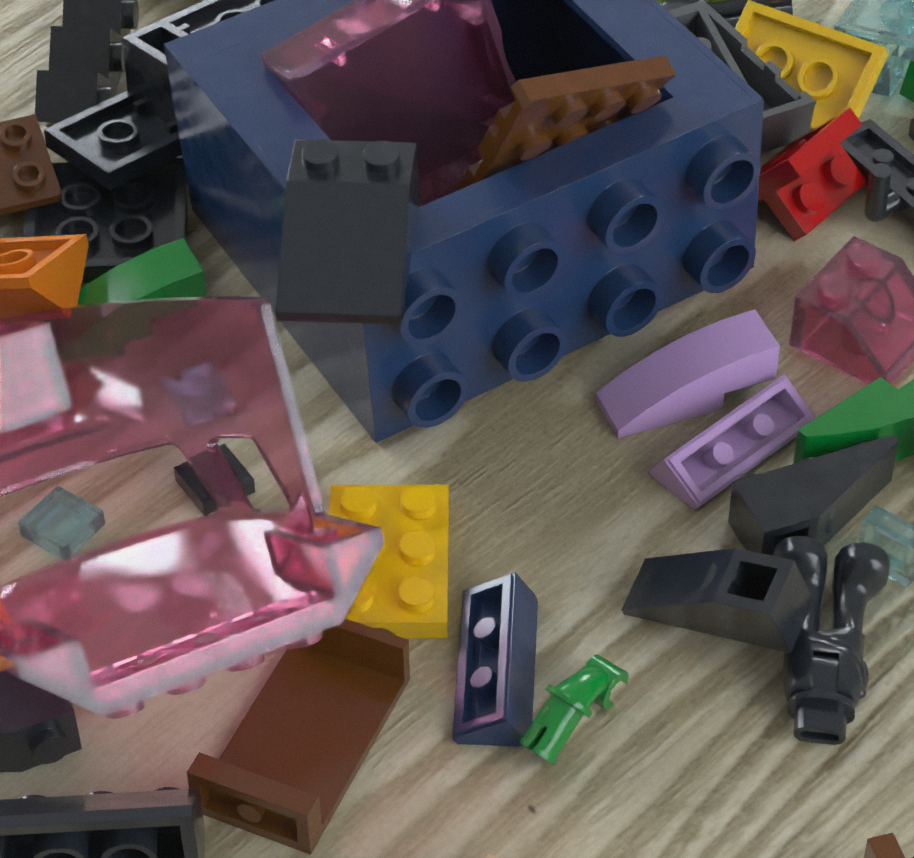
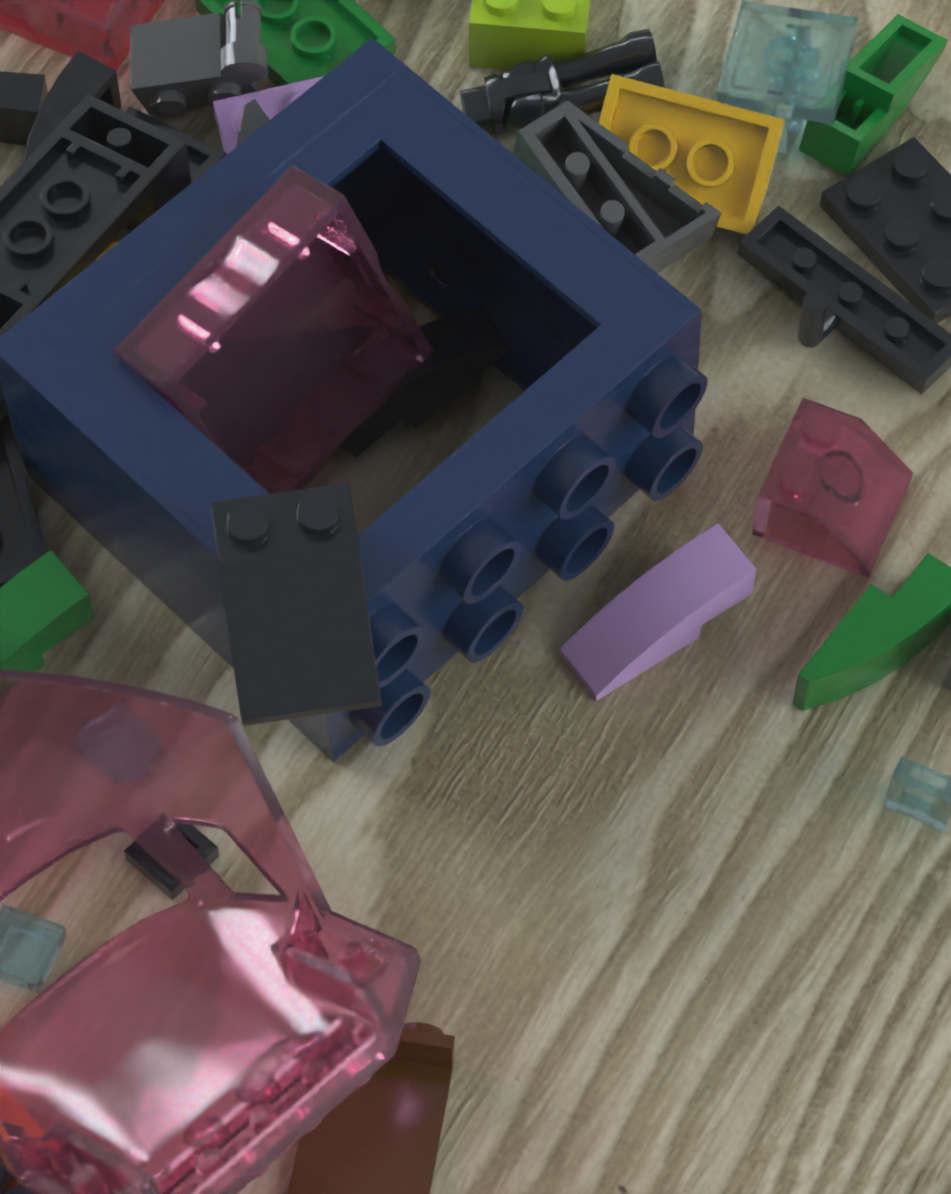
camera: 15 degrees left, 15 degrees up
(410, 575) = (401, 885): yellow plate -> none
(496, 663) = (541, 1025): dark blue slope -> none
(565, 108) = (482, 395): reddish brown wing -> none
(569, 703) = (639, 1068): green piece -> none
(724, 595) = (762, 907): black slope -> none
(734, 444) = (724, 685): lavender slope -> none
(810, 496) = (812, 767): black slope -> none
(811, 176) = (736, 300): red bracket -> none
(826, 668) = (885, 960): black piece -> none

